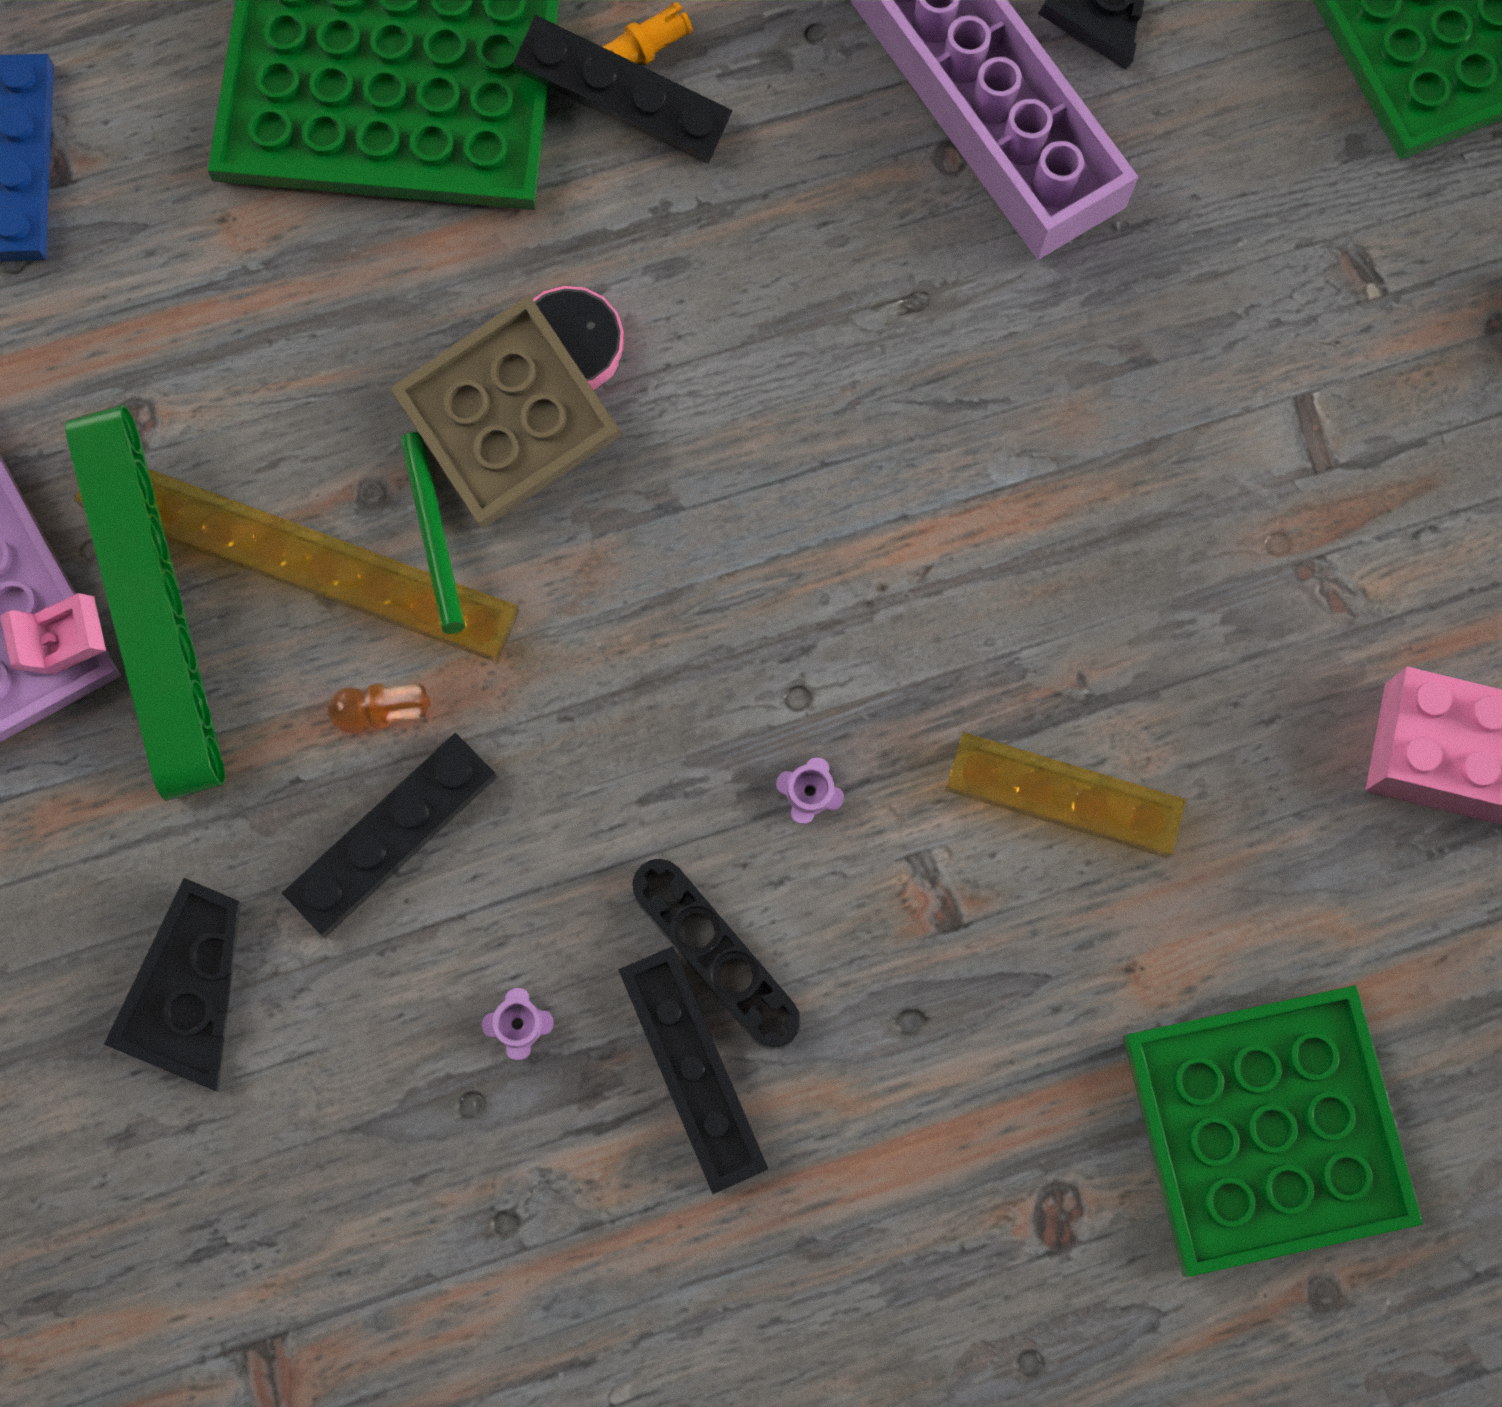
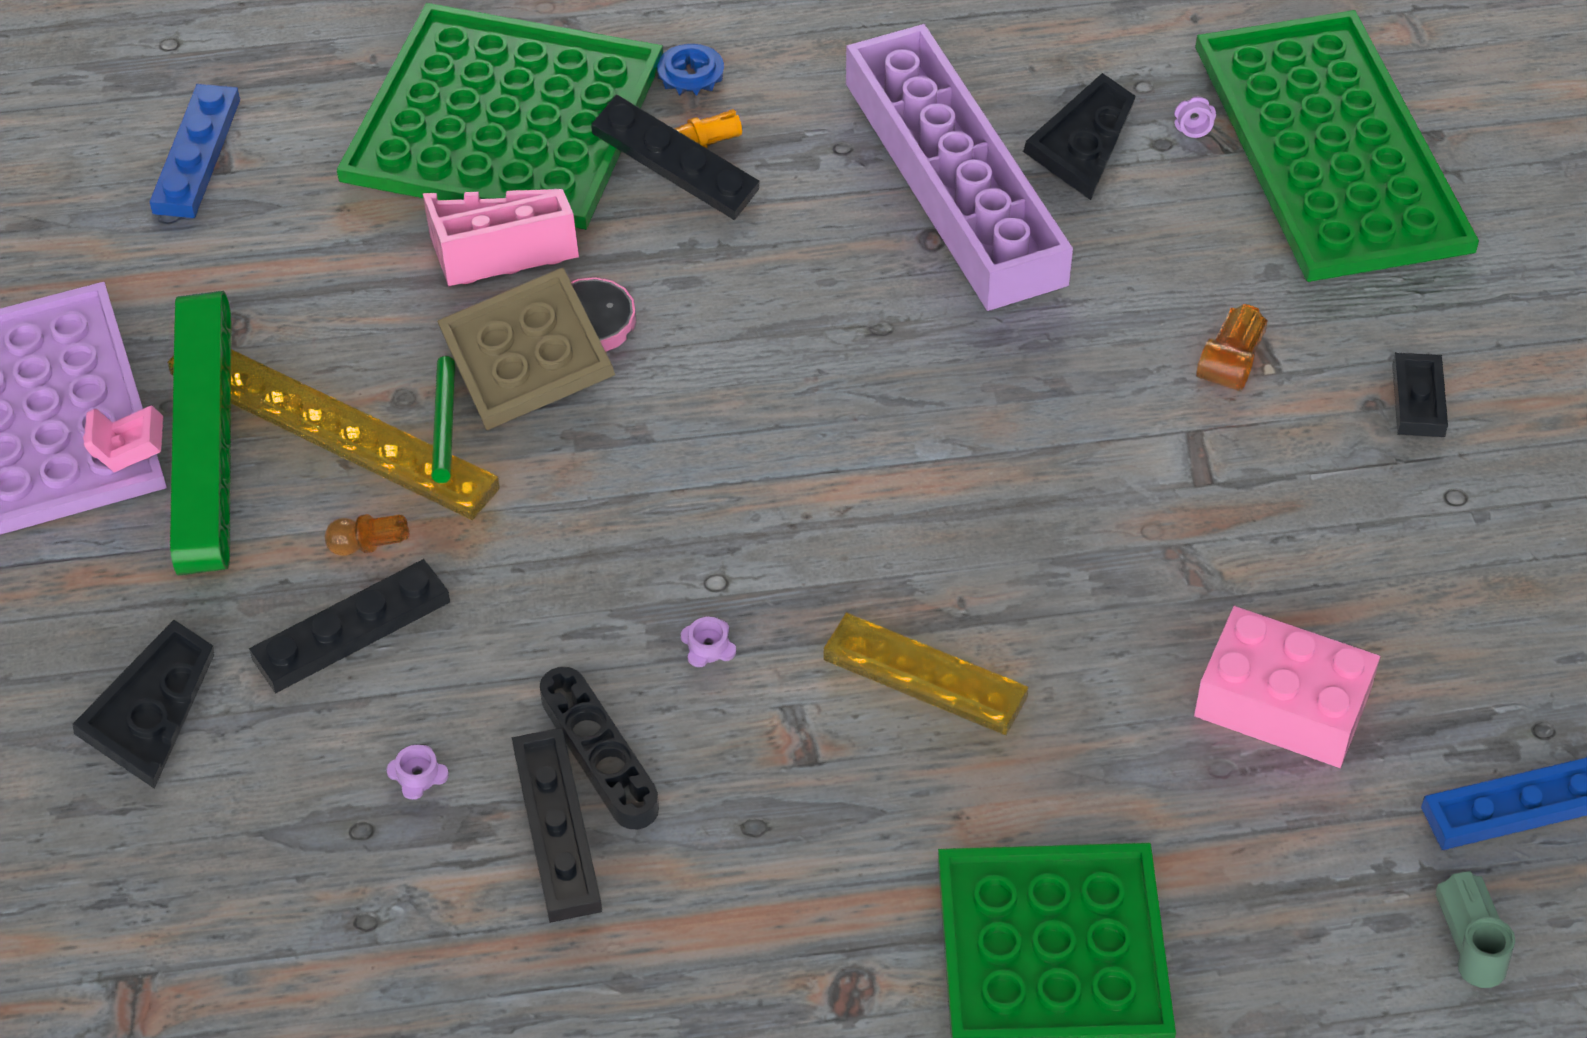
camera: 15 degrees right, 25 degrees down
(434, 244) = (500, 234): none -> bright pink wedge
(1332, 288) = (1231, 354): none -> clear orange piece

